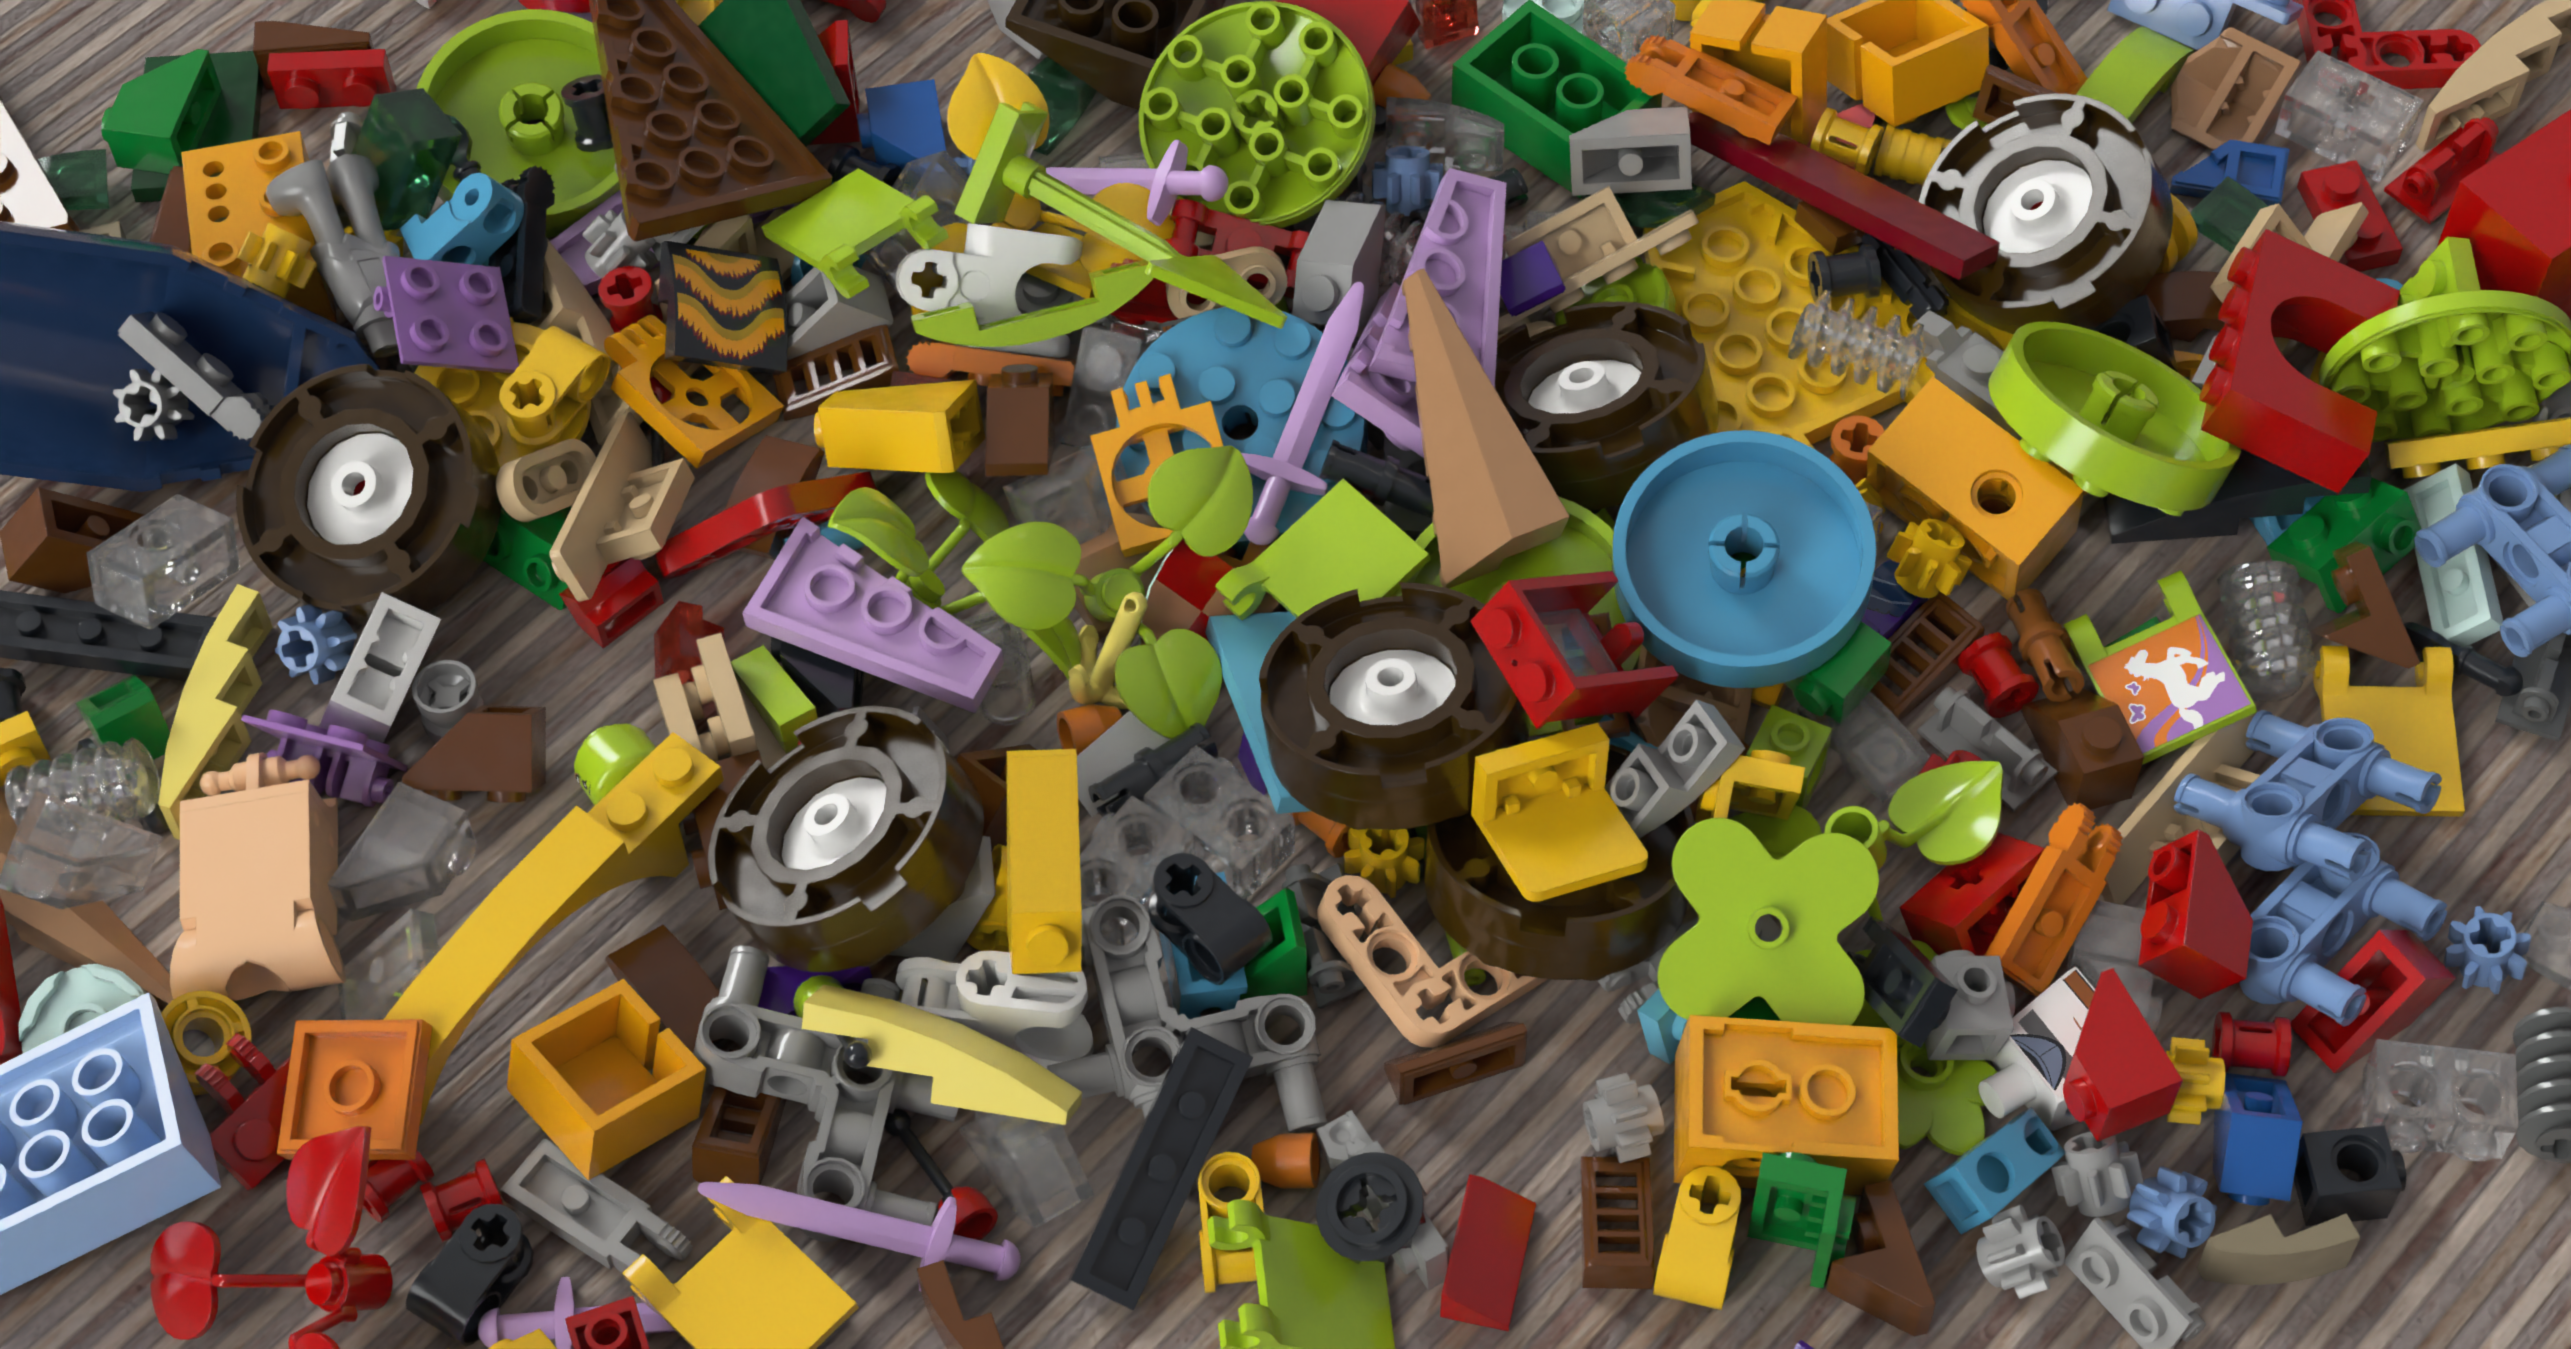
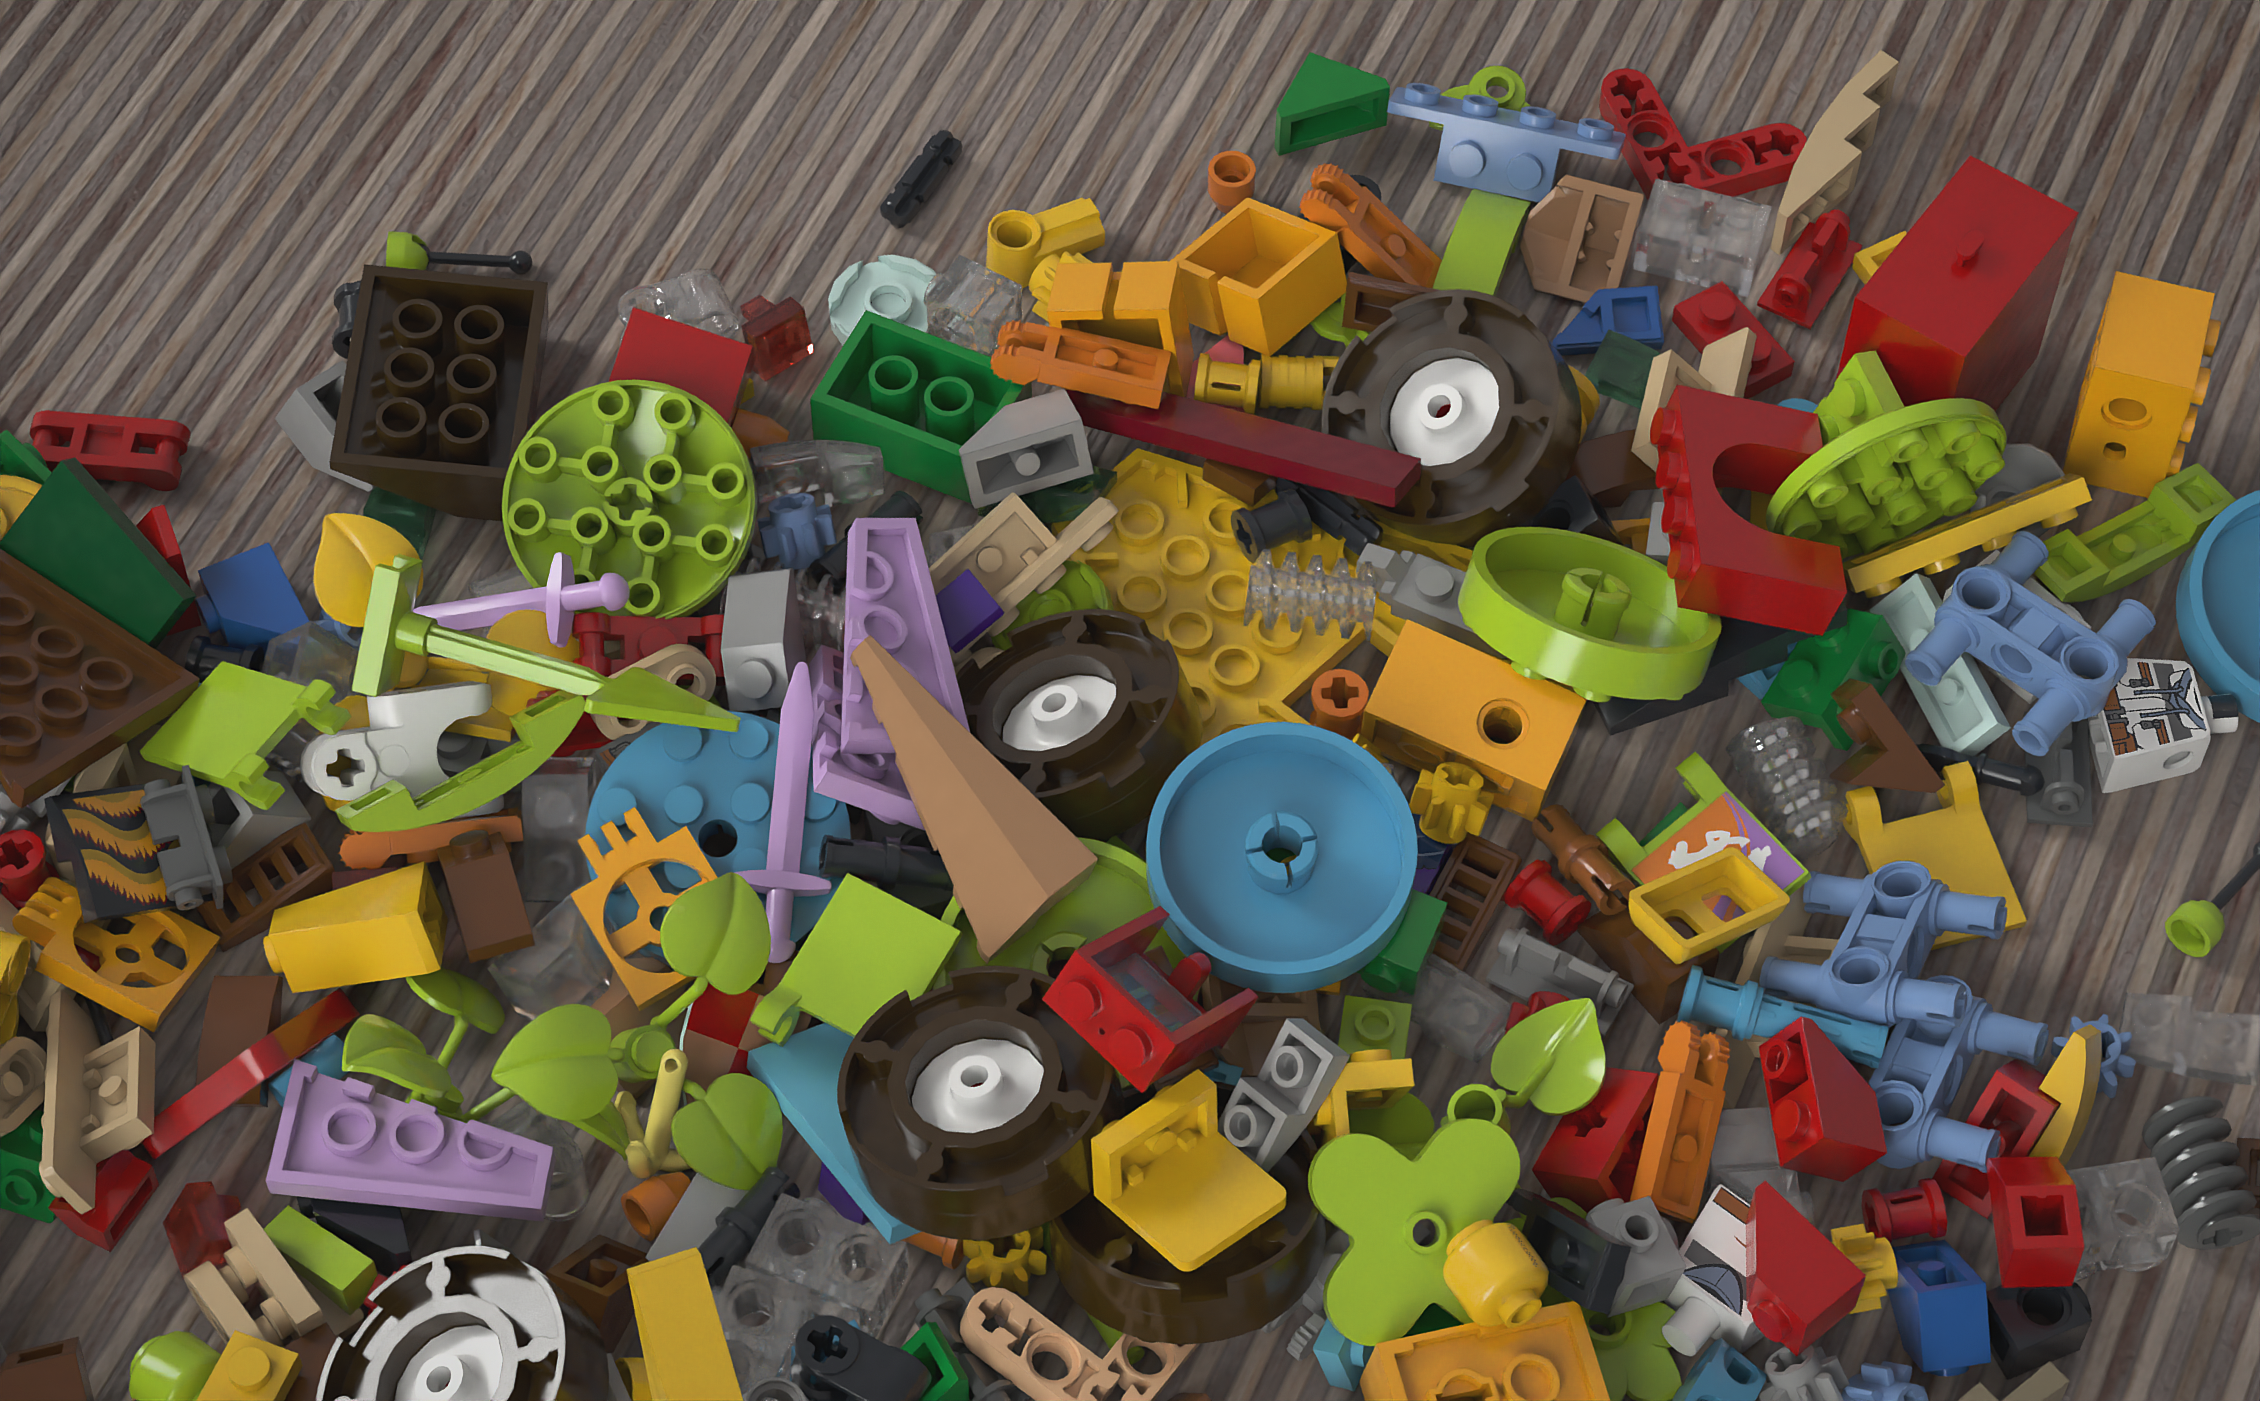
camera: 20 degrees left, 0 degrees up
(774, 335) = (196, 865): none -> dark grey hinge
(1821, 981) = (1495, 1274): none -> yellow head
(2128, 691) = (1683, 895): none -> yellow piece
(2154, 816) = (1749, 1012): none -> dark azure pin
(2369, 1079) = (2035, 1221): none -> red slope
(2456, 964) = (2073, 1084): none -> yellow slope

